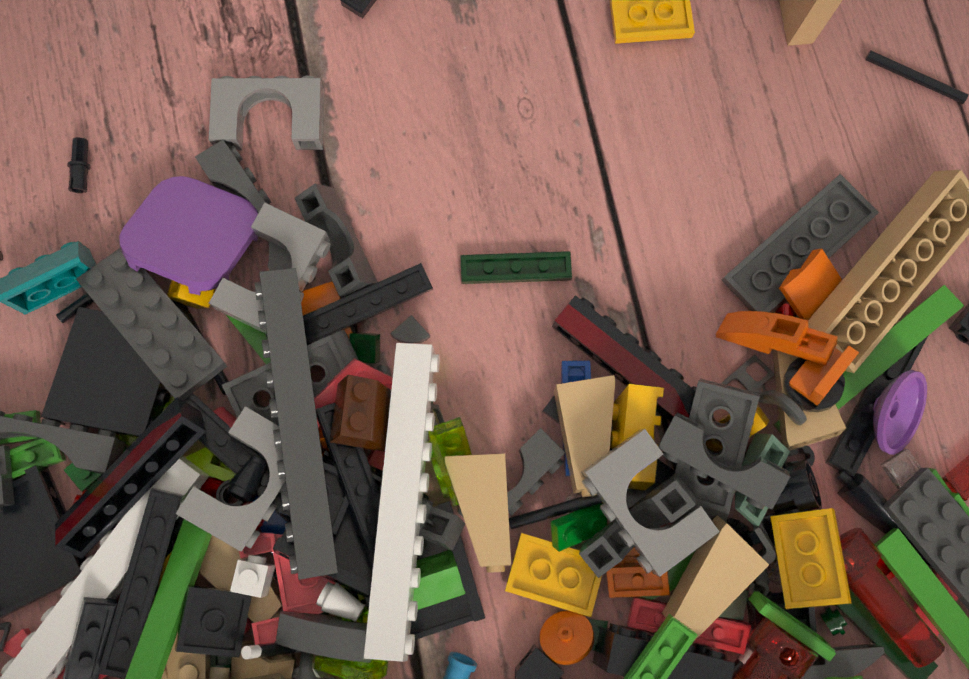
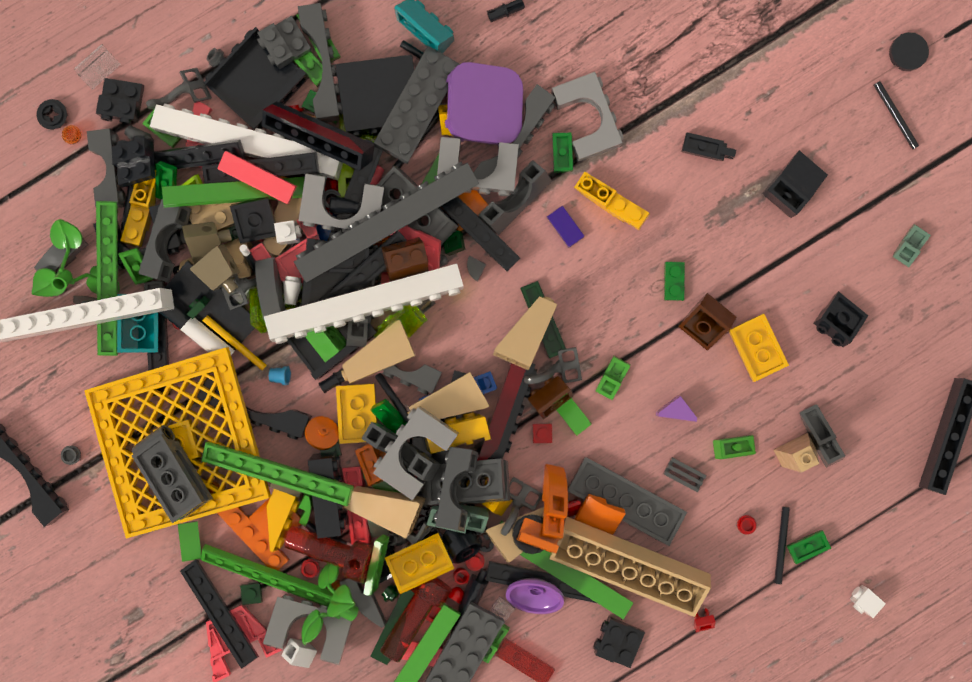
camera: 70 degrees right, 10 degrees up
(150, 593) = (257, 177): none -> coral tile
(300, 161) = (562, 152): none -> green plate
(391, 124) = (611, 201): none -> yellow slope
(401, 194) = (565, 226): none -> dark purple tile
(495, 592) = (332, 381): none -> black axle
(527, 85) = (674, 281): none -> green plate
(533, 291) = (525, 337): none -> tan slope
(588, 268) = (559, 367): none -> dark grey piece
(596, 61) = (707, 321): none -> reddish brown slope
(625, 291) = (550, 397): none -> reddish brown slope
(626, 206) = (612, 377): none -> bright green slope
(659, 275) = (574, 417): none -> bright green slope
(671, 324) = (542, 433): none -> red plate
(697, 138) = (677, 409): none -> medium lavender slope
(770, 90) = (734, 447): none -> bright green slope
(801, 148) = (699, 482): none -> dark grey tile
(825, 480) = (475, 562): none -> red plate
(845, 507) = (458, 579): none -> red hinge
(863, 521) = (457, 594): none -> red hinge
(877, 108) = (746, 524): none -> red plate
(929, 44) = (808, 547): none -> green plate

